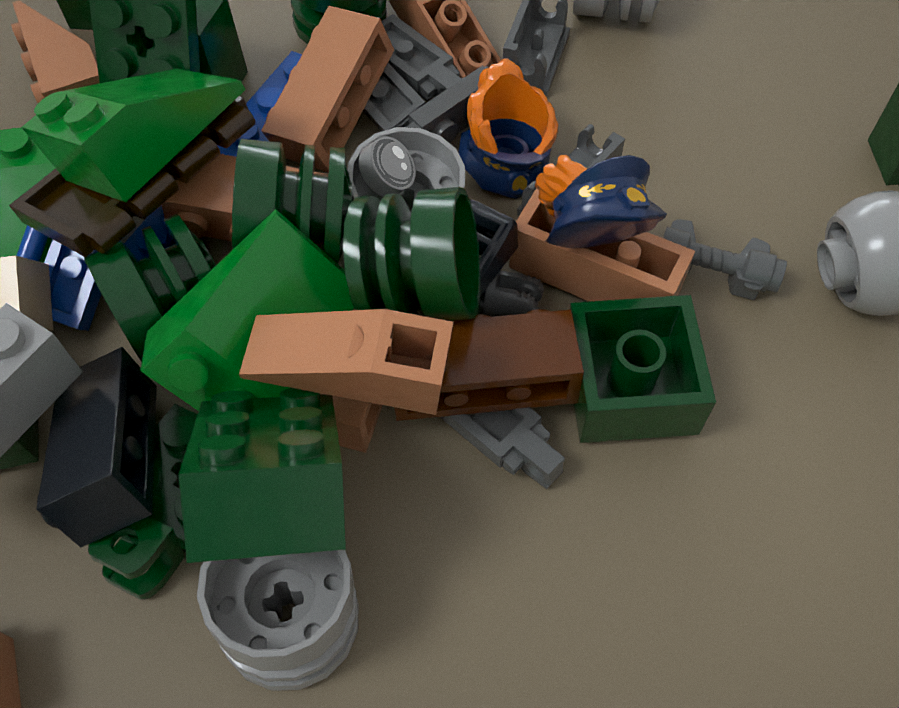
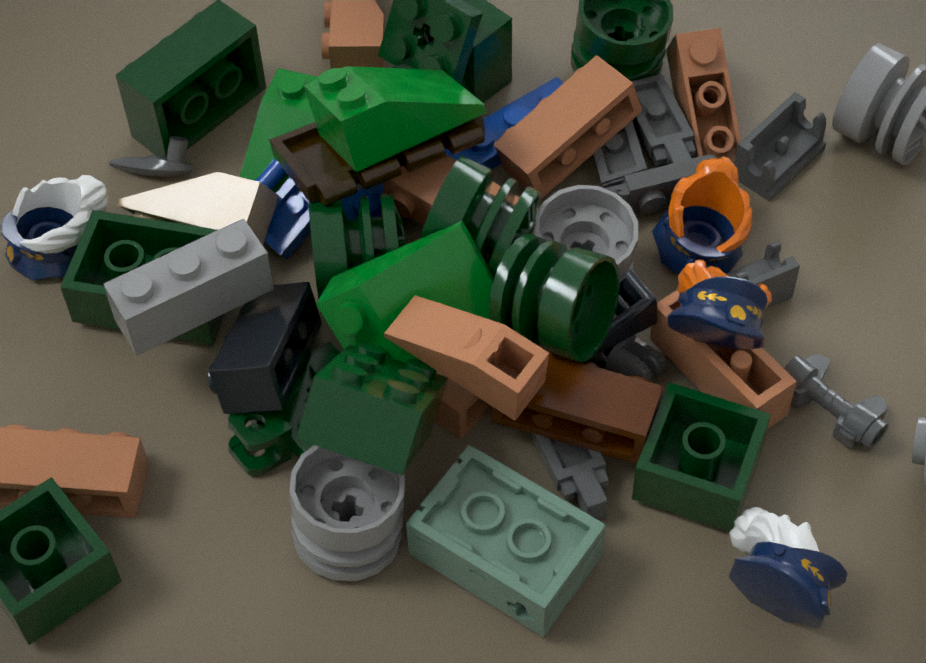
camera: 25 degrees right, 5 degrees down
(387, 166) = (574, 216): light grey tile -> none
(481, 555) = (506, 539): none -> sand green piece
(788, 452) = (783, 568): none -> dark blue piece

